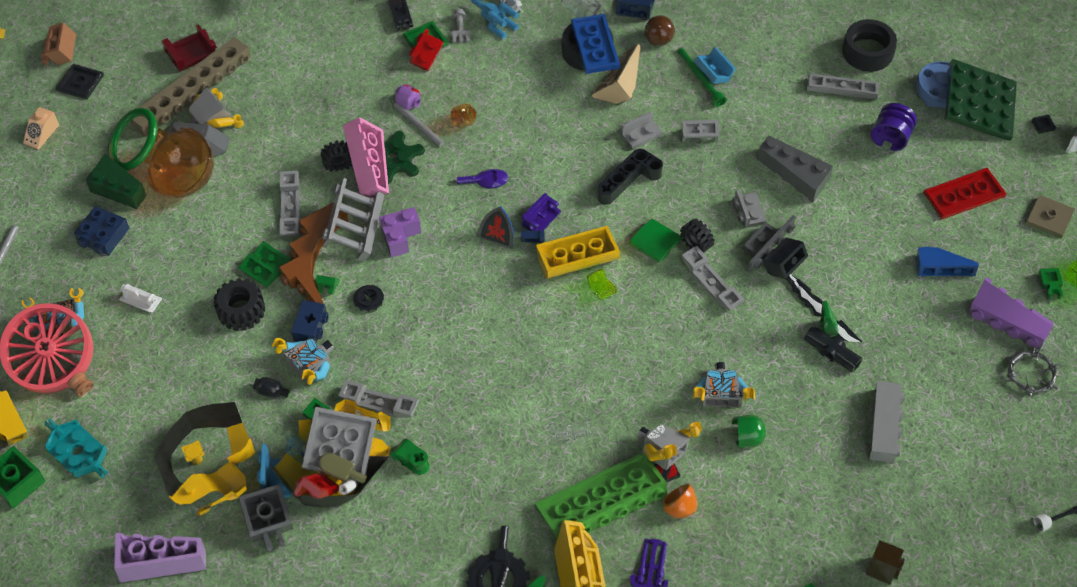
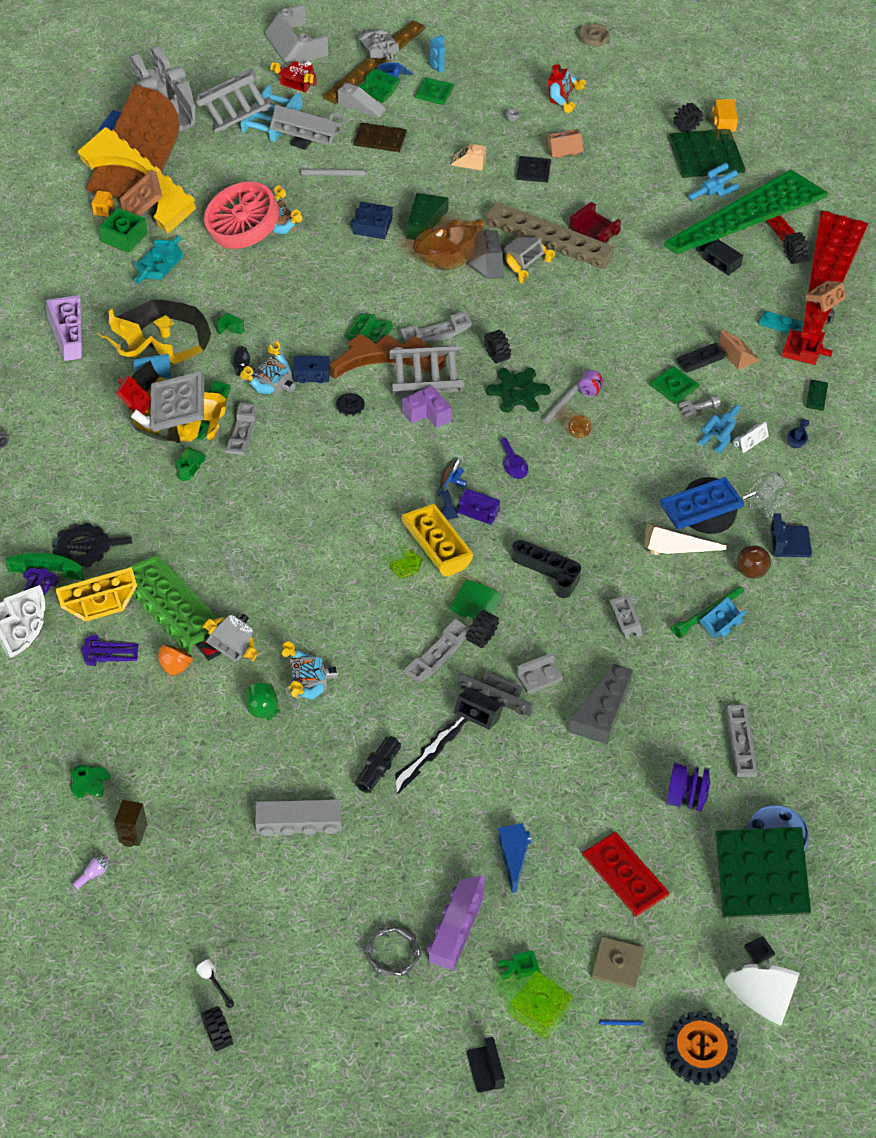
camera: 75 degrees right, 5 degrees down
(80, 384) = (217, 246): nougat wheel -> none
(139, 298) = (313, 260): white hinge -> none
(151, 138) = (484, 205): green wedge -> none
(212, 386) = (230, 322): none -> green bracket
(241, 316) = (317, 319): black tyre -> none
(265, 526) = (106, 379): dark grey hinge -> none
(330, 282) = (357, 372): green tile -> none
(339, 468) = (153, 407): olive piece -> none
(367, 156) = (497, 363): bright pink wedge -> none
(426, 51) = (653, 383): red bracket -> none
(640, 131) = (612, 569): light grey bracket -> none
(828, 320) = (407, 751): green slope -> none
(864, 59) = (802, 775): black tyre -> none

